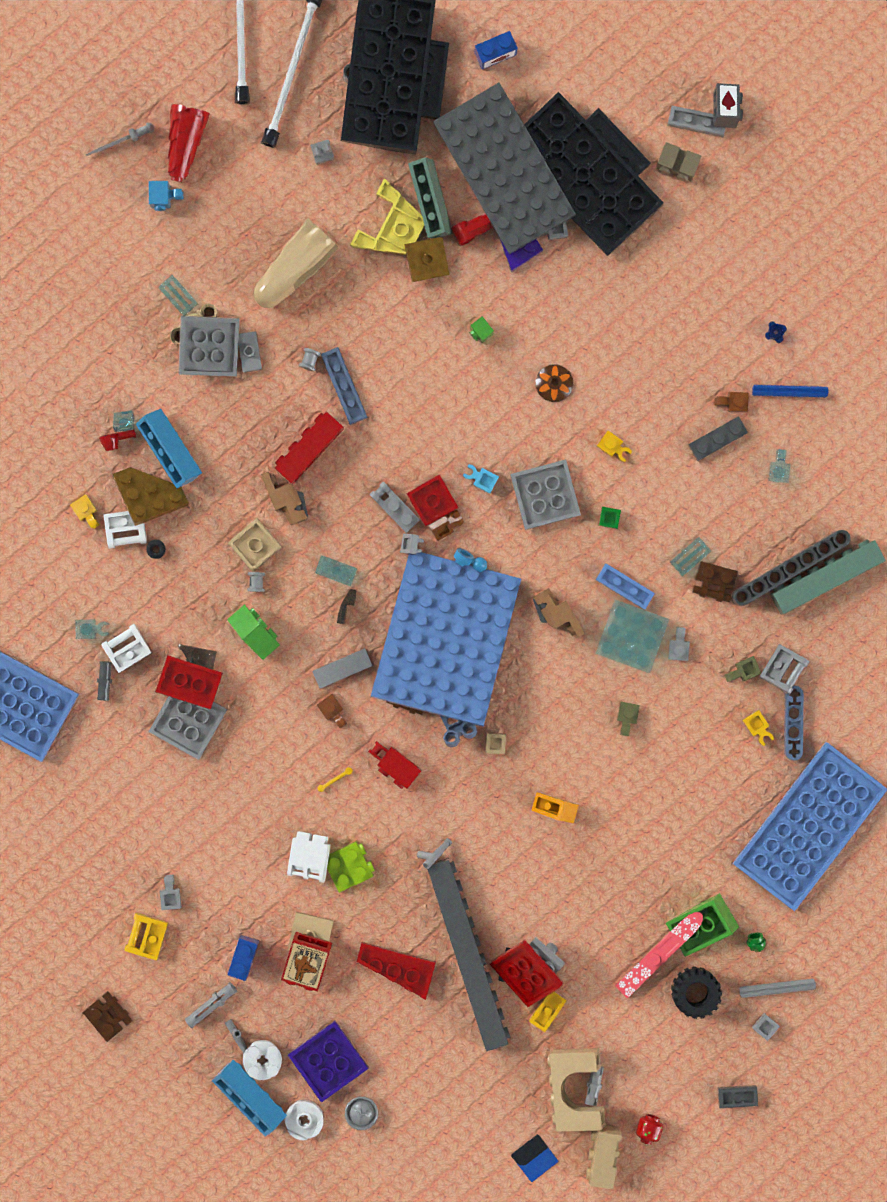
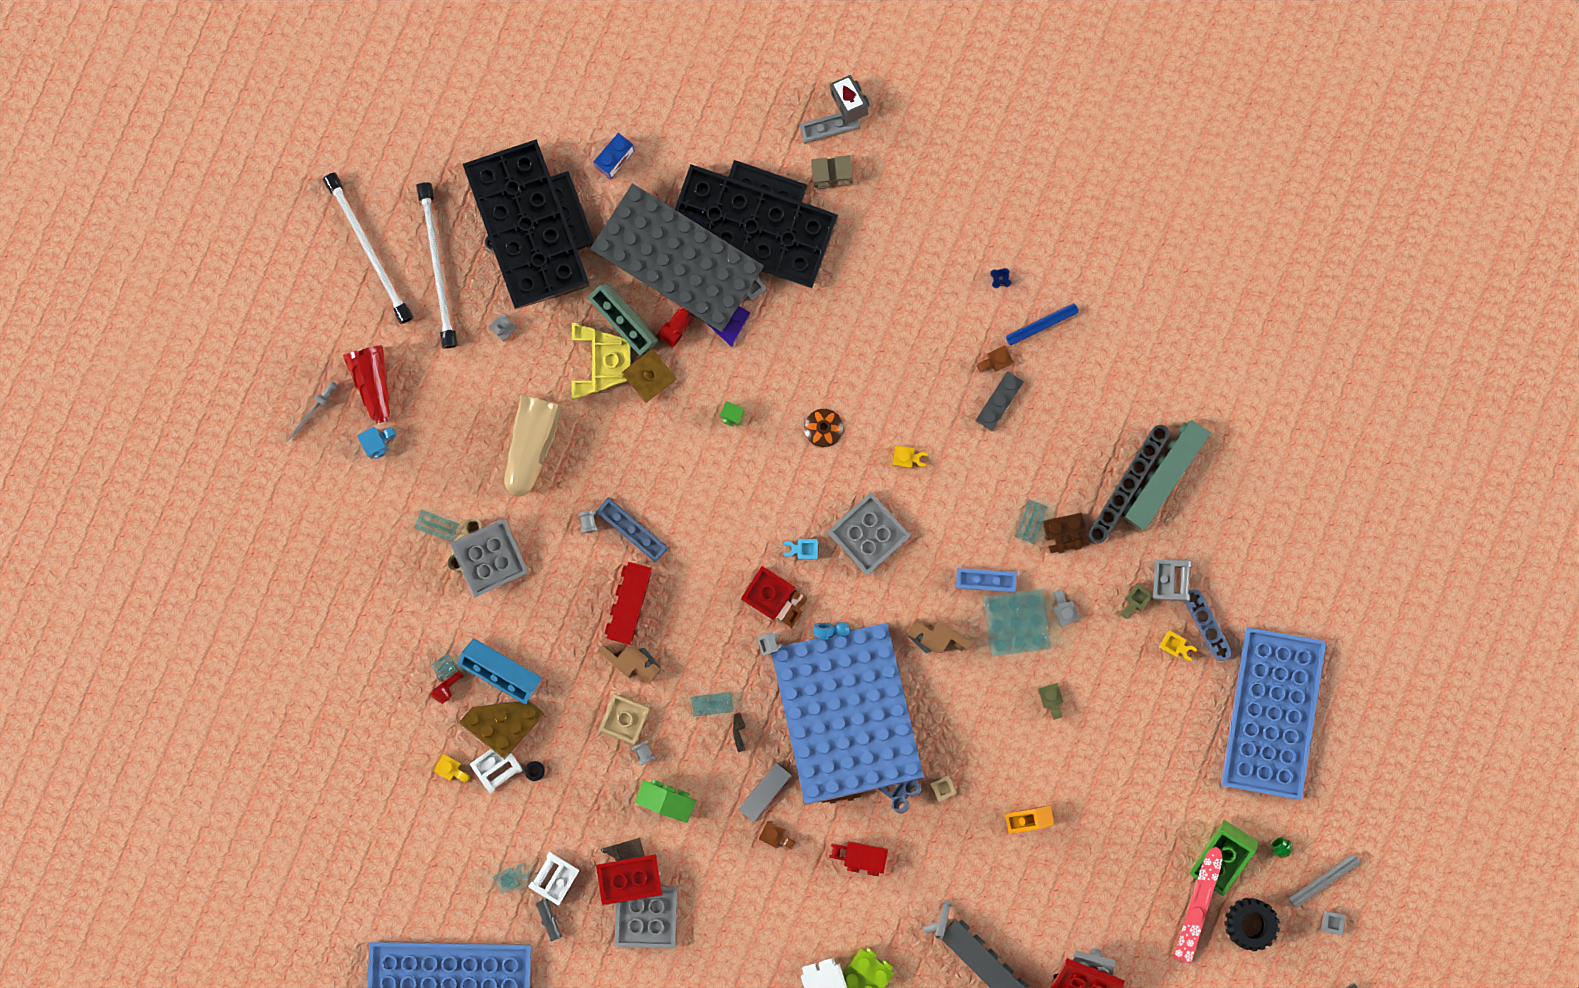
camera: 20 degrees left, 5 degrees down
(249, 352) = (529, 543): light grey plate -> none
(348, 771) = (820, 885): yellow hinge -> none
(395, 507) = (737, 617): light grey plate -> none
(609, 517) = (938, 524): green plate -> none
(779, 470) = (1071, 401): clear light blue plate -> none

